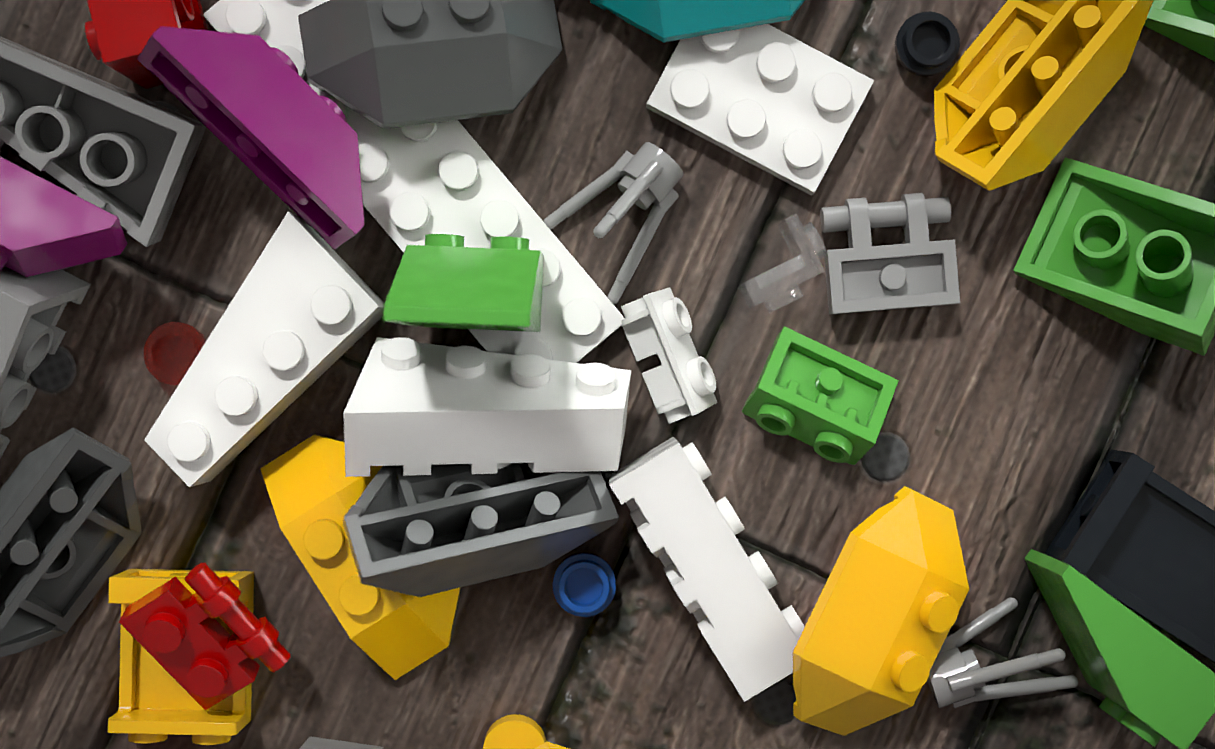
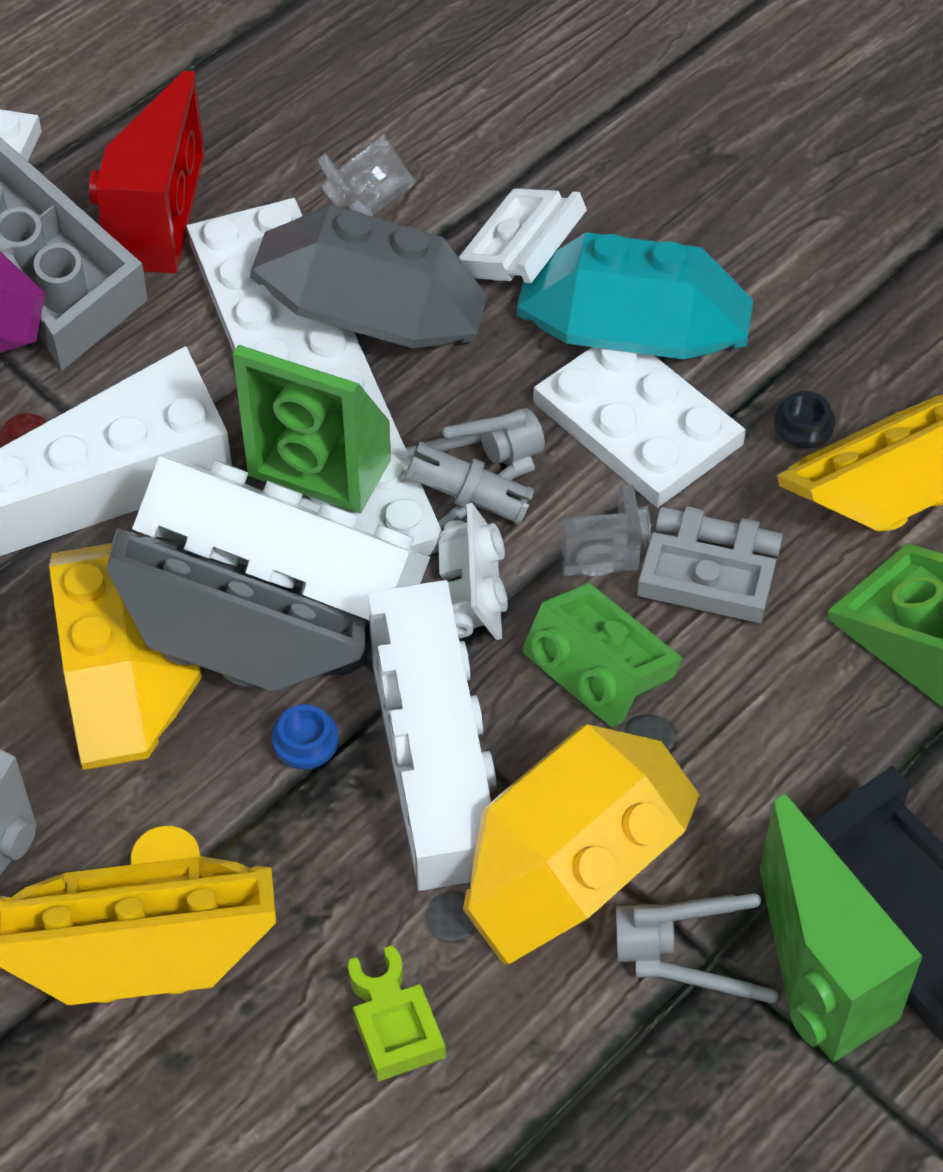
camera: 20 degrees right, 35 degrees down
(268, 120) = (196, 270): magenta wedge -> none
(630, 256) = (469, 483): none -> light grey pin

